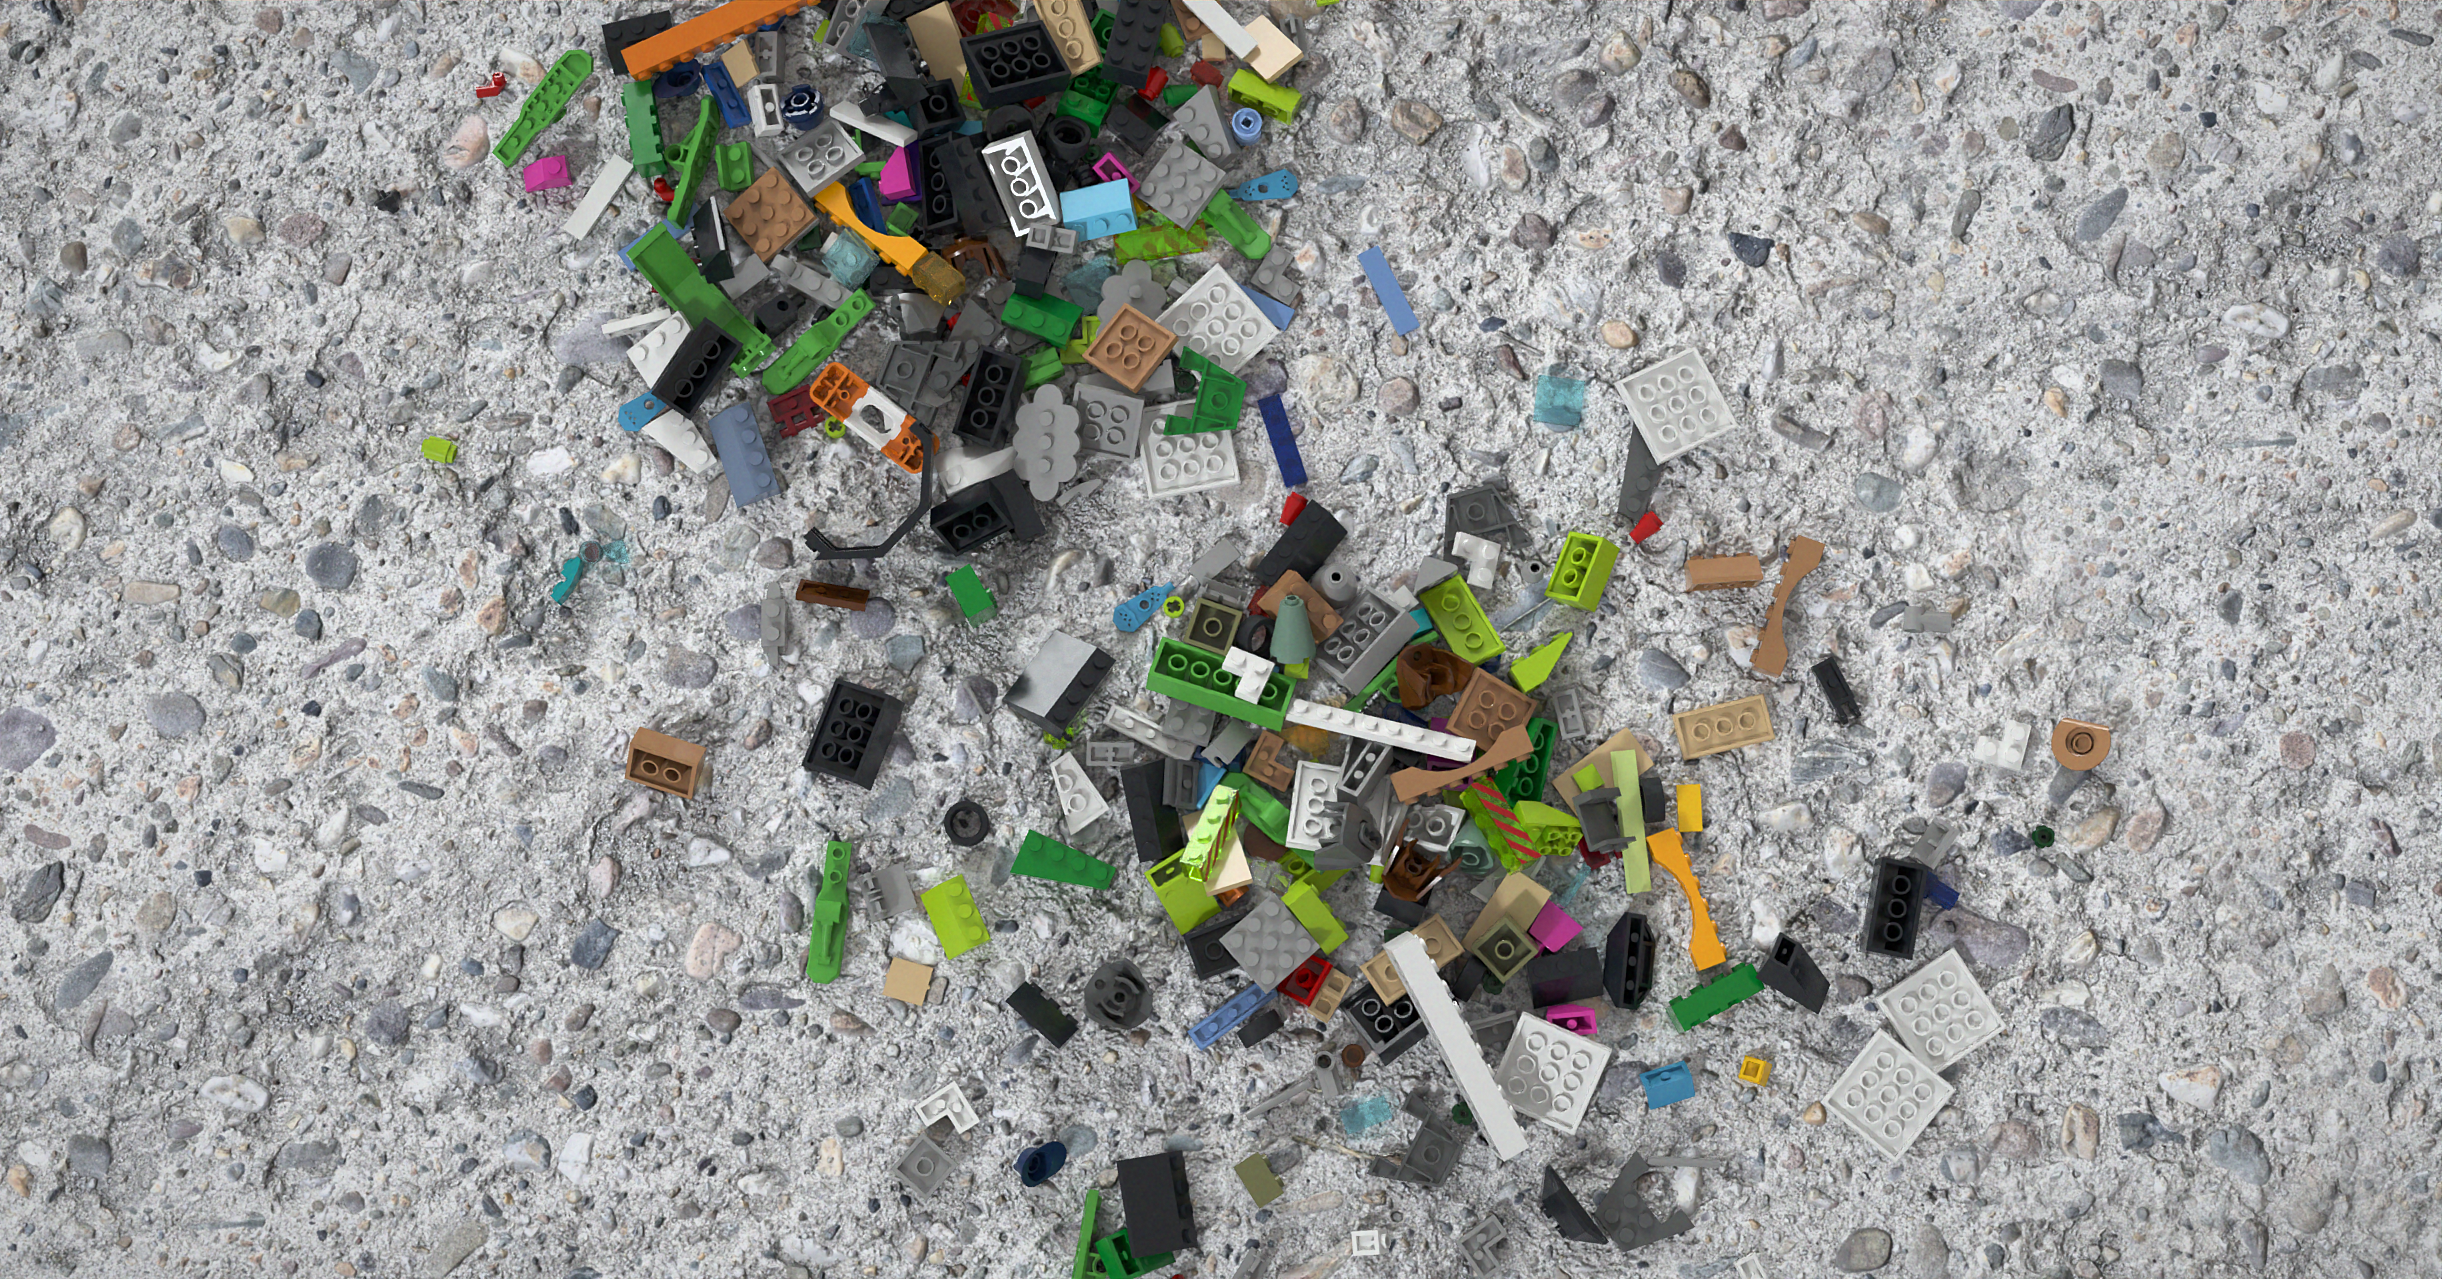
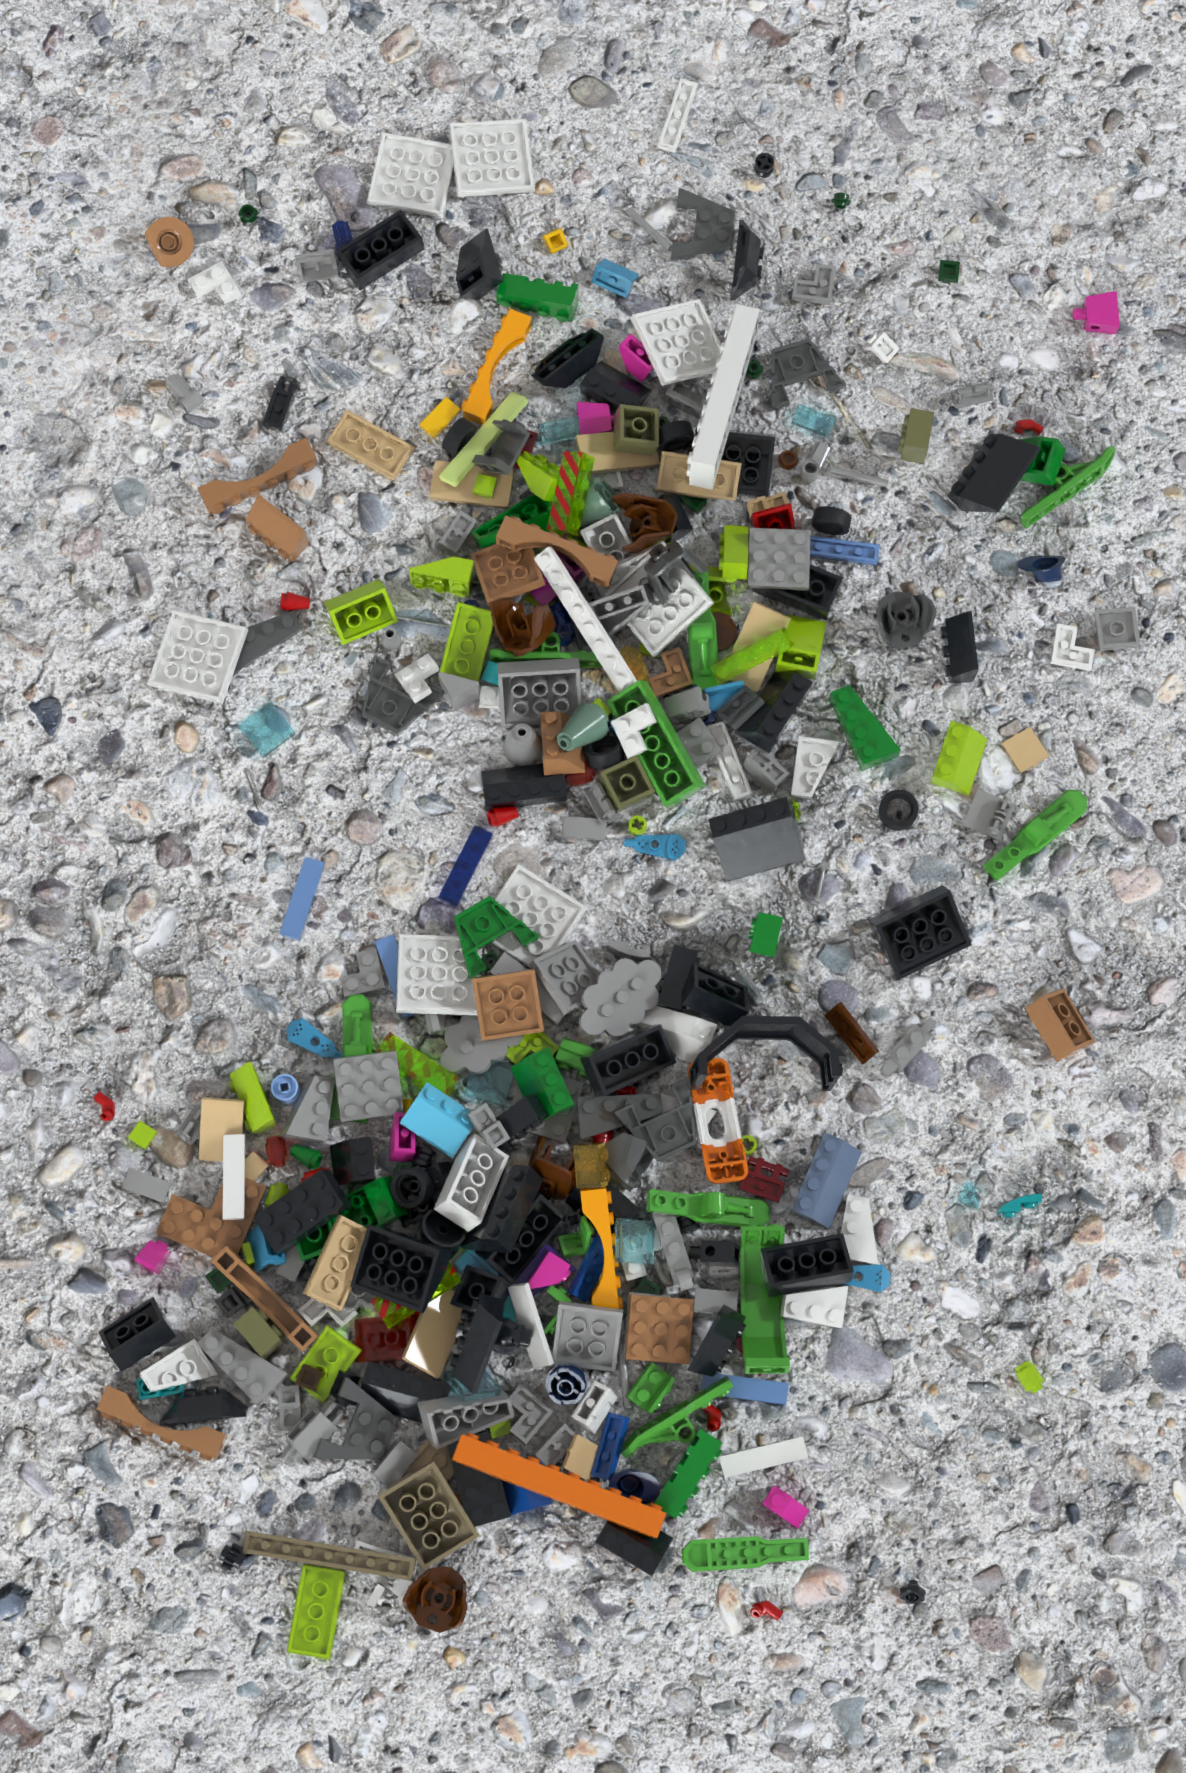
camera: 135 degrees left, 5 degrees down
(591, 552) = (987, 1211): clear light blue tile -> none
(635, 323) = (816, 1340): white plate -> none
(810, 65) = (533, 1414): none -> light grey plate

